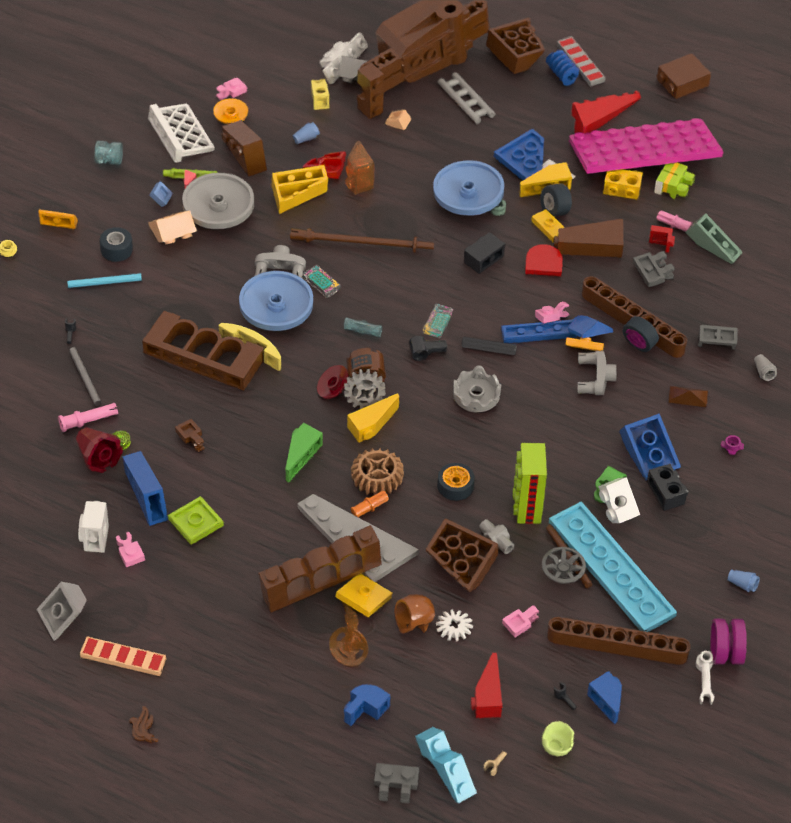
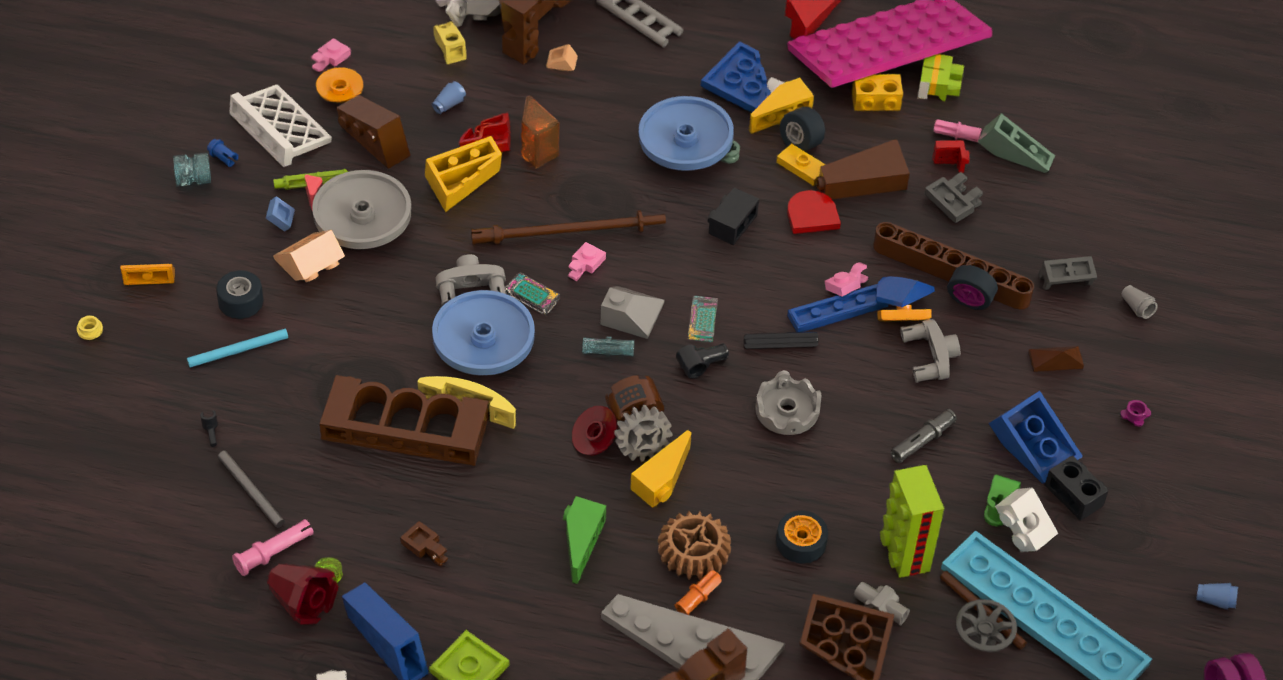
camera: 15 degrees left, 0 degrees up
(131, 141) = (218, 149): none -> blue pin
(367, 264) = (586, 259): none -> bright pink plate
(386, 305) = (630, 311): none -> light grey slope
(577, 427) = (931, 430): none -> dark grey pin

